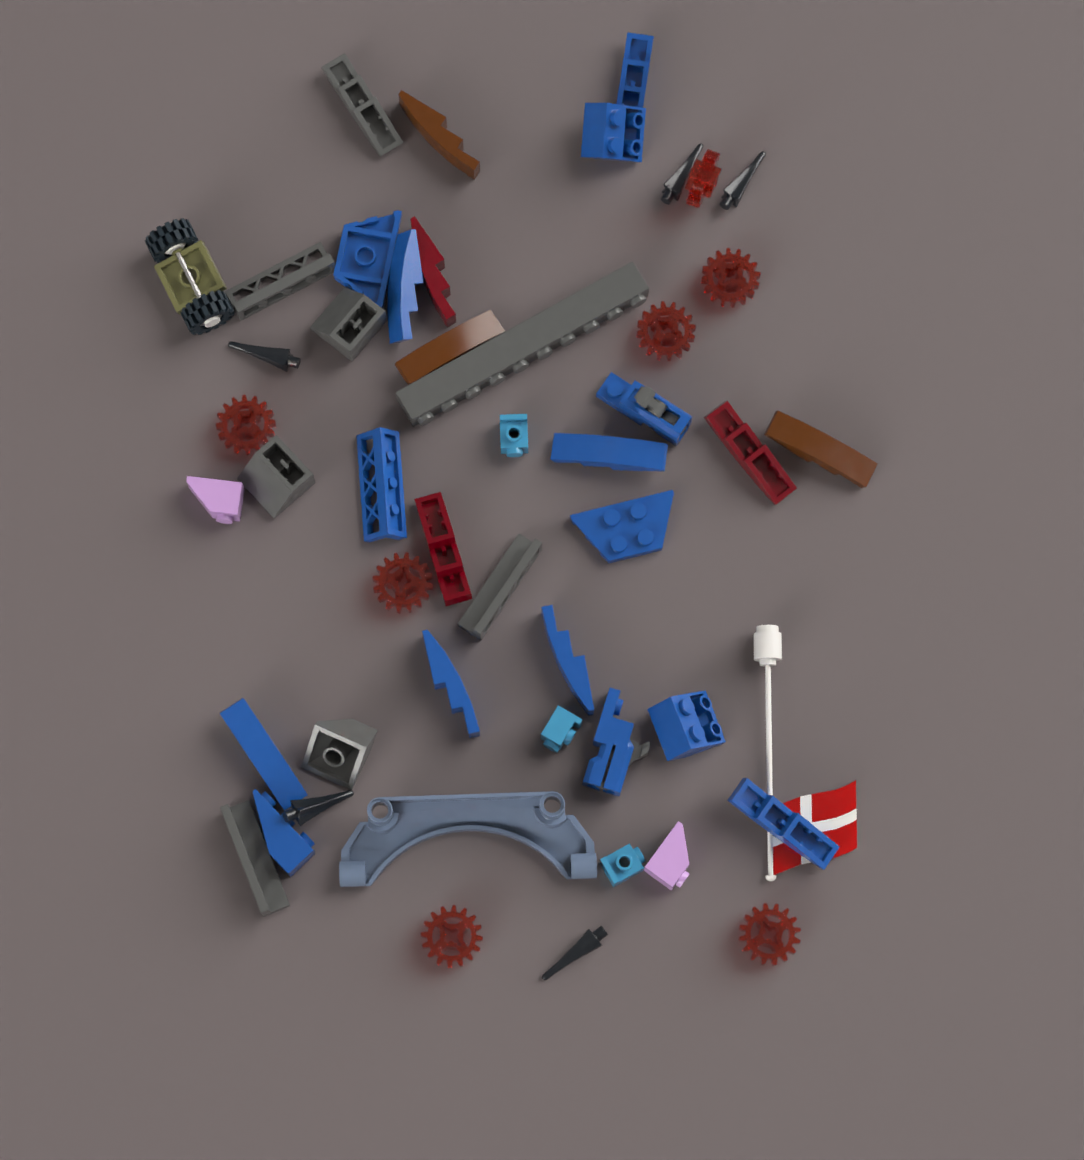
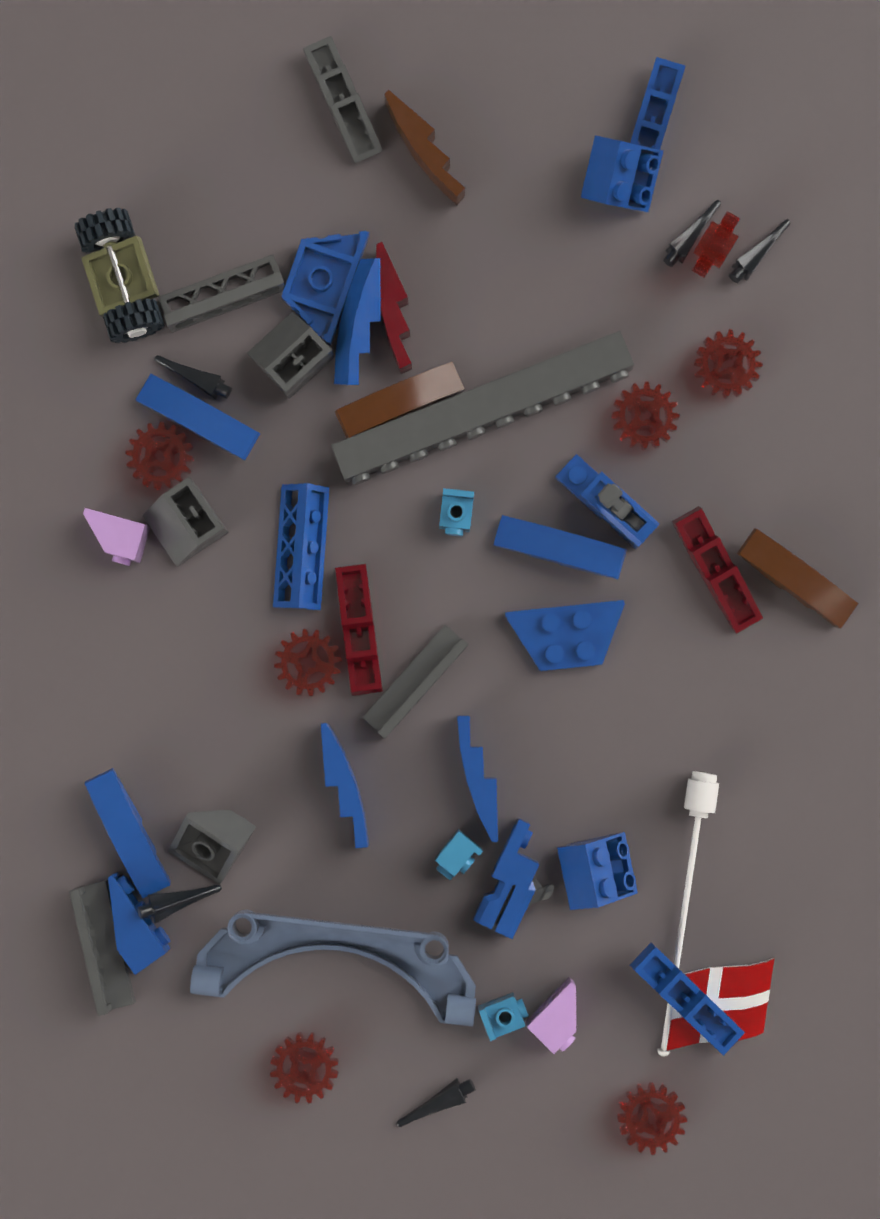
camera: 15 degrees right, 10 degrees up
(274, 386) = (198, 417): none -> blue slope

